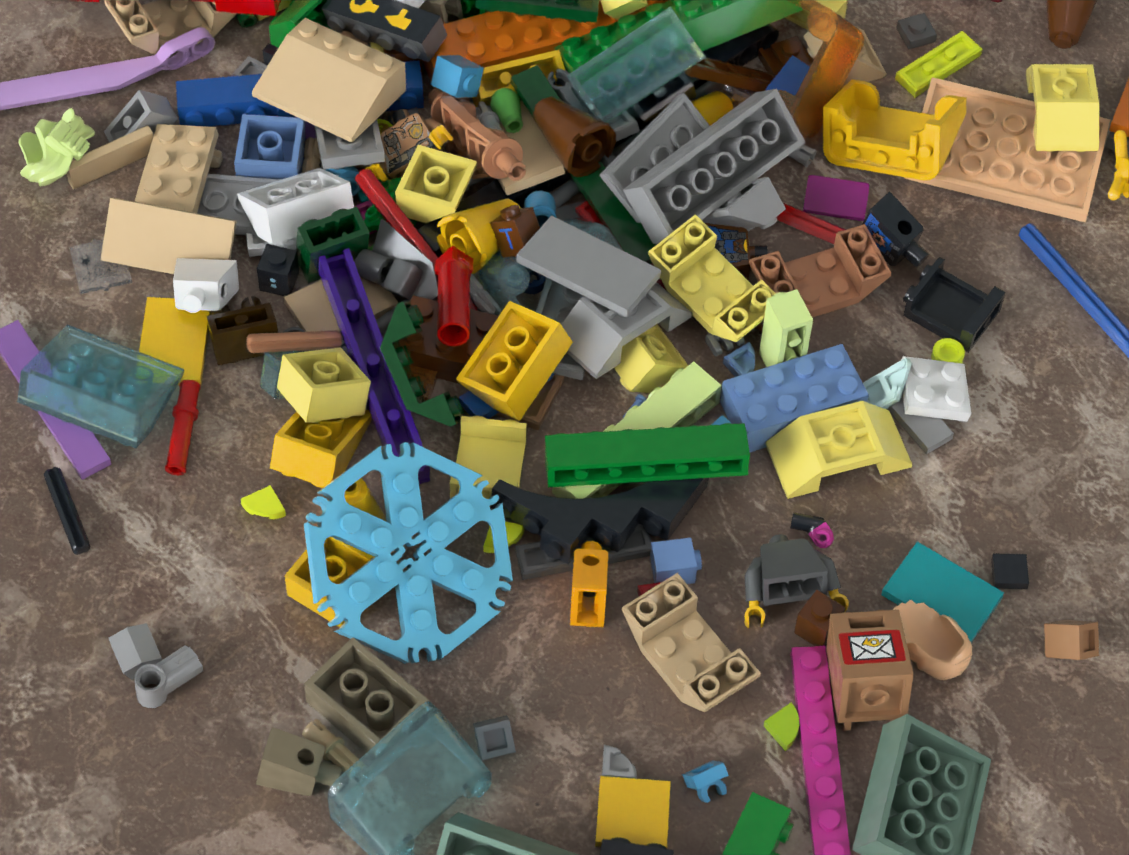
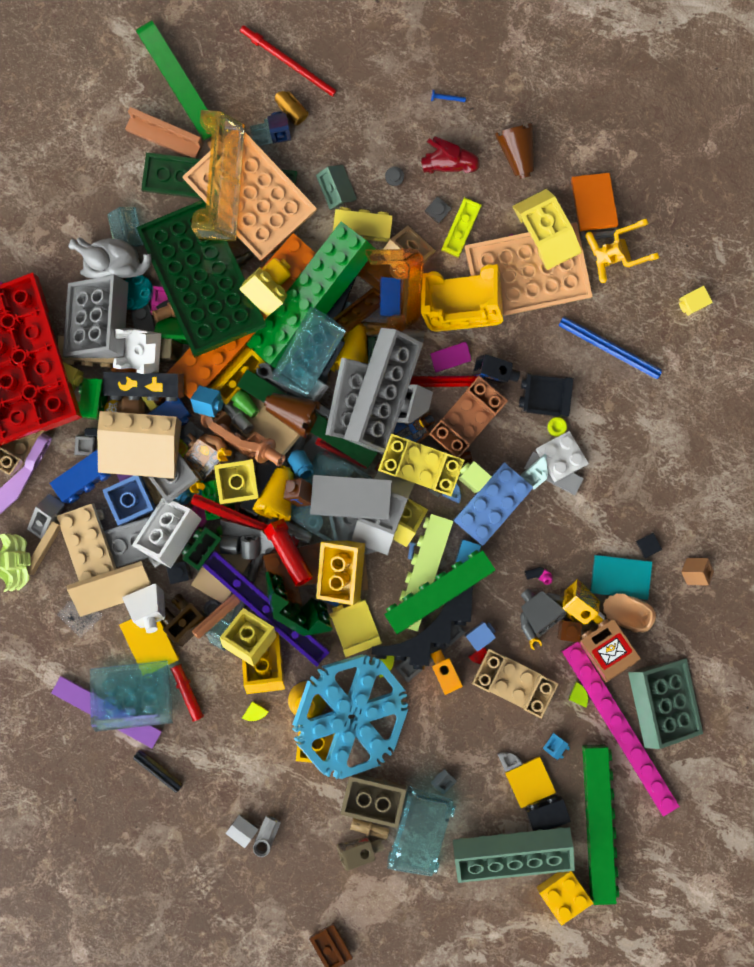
camera: 30 degrees left, 30 degrees up
(836, 443) = (531, 523): light yellow slope -> none
(857, 576) = (582, 603): none -> yellow torso

